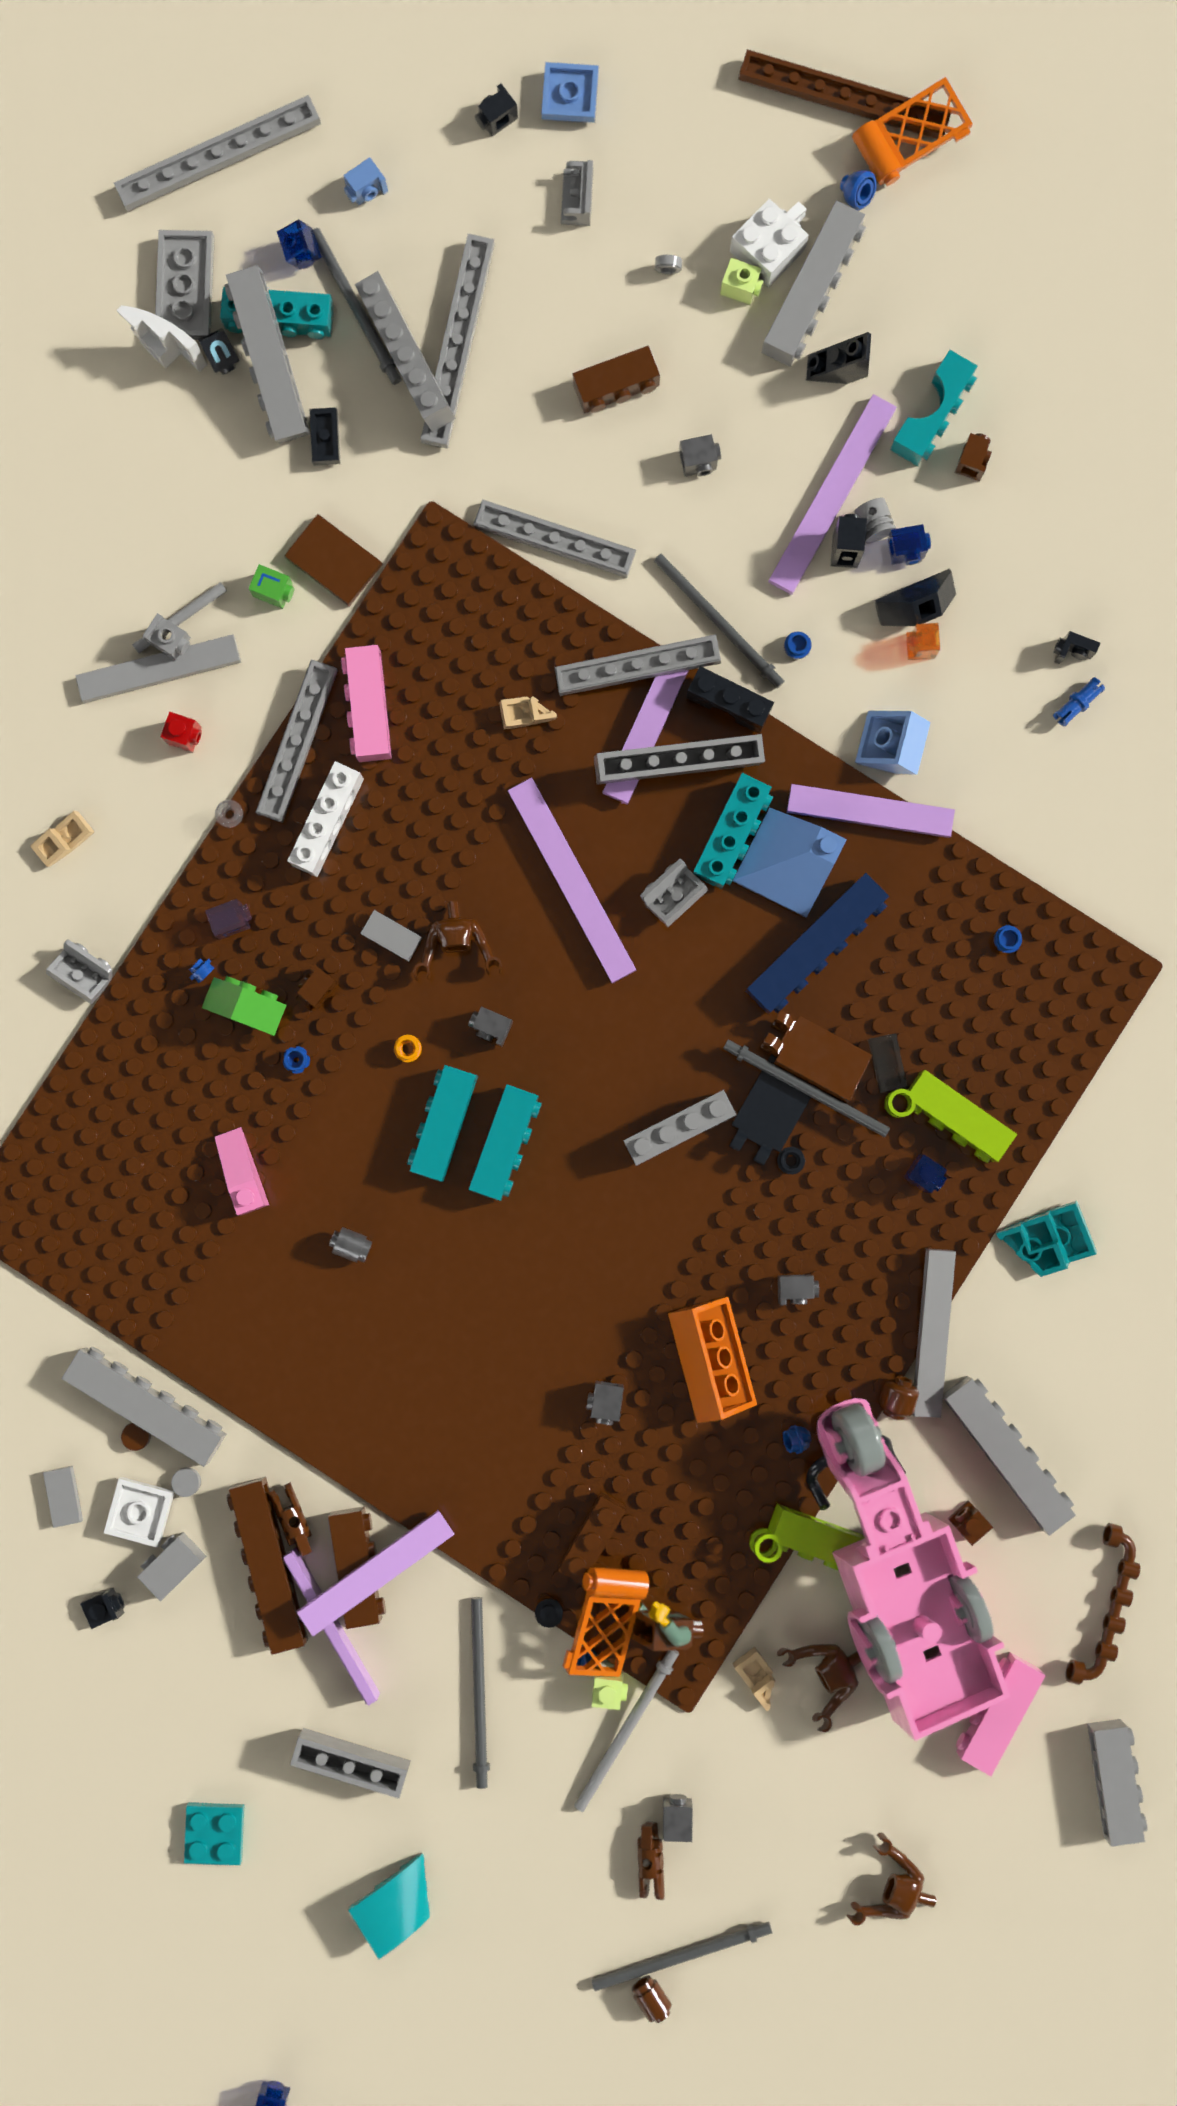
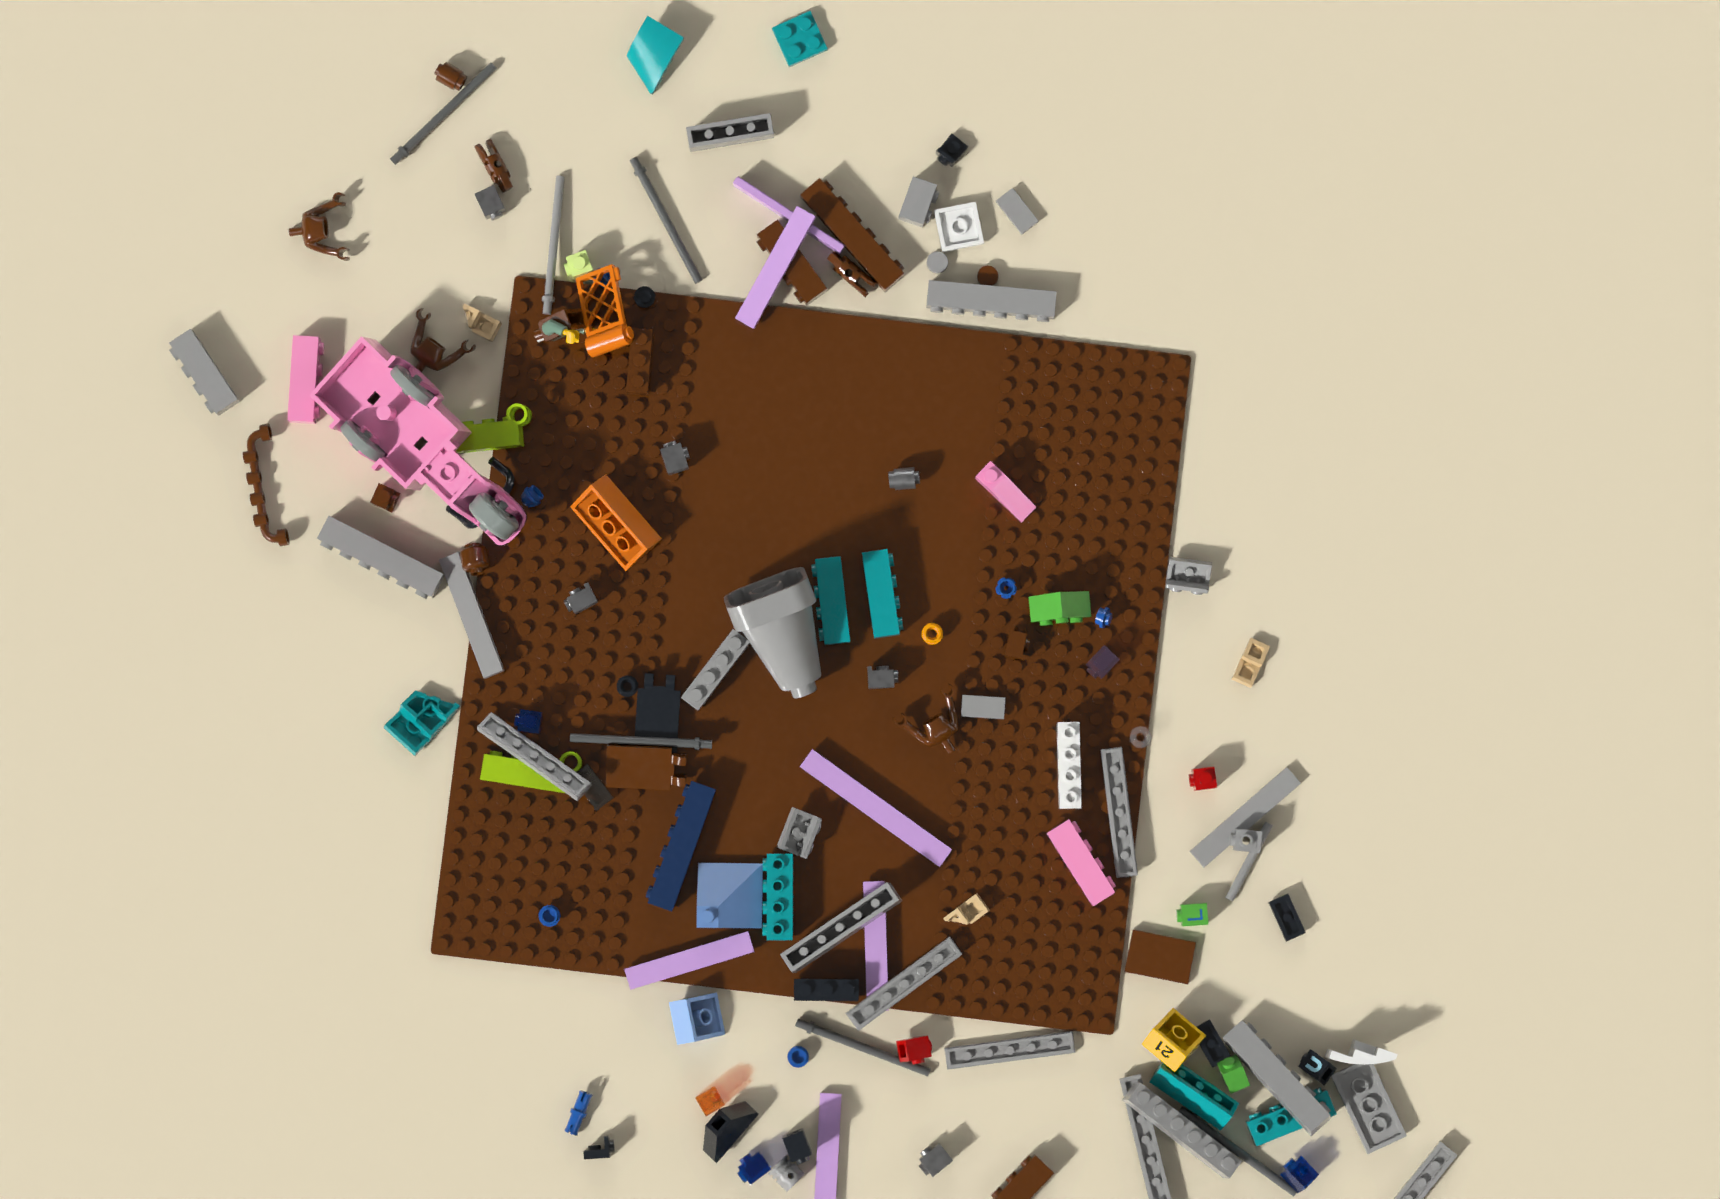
camera: 145 degrees right, 0 degrees up
(168, 533) = (1286, 917): none -> black plate
(316, 387) = (1233, 1074): none -> bright green brick
(362, 452) = (1173, 1039): none -> yellow brick
(370, 388) = (1195, 1094): none -> teal brick
(580, 1140) = (780, 627): none -> light grey cone
(662, 587) = (914, 1049): none -> red brick
(941, 1129) = (534, 756): none -> light grey tile

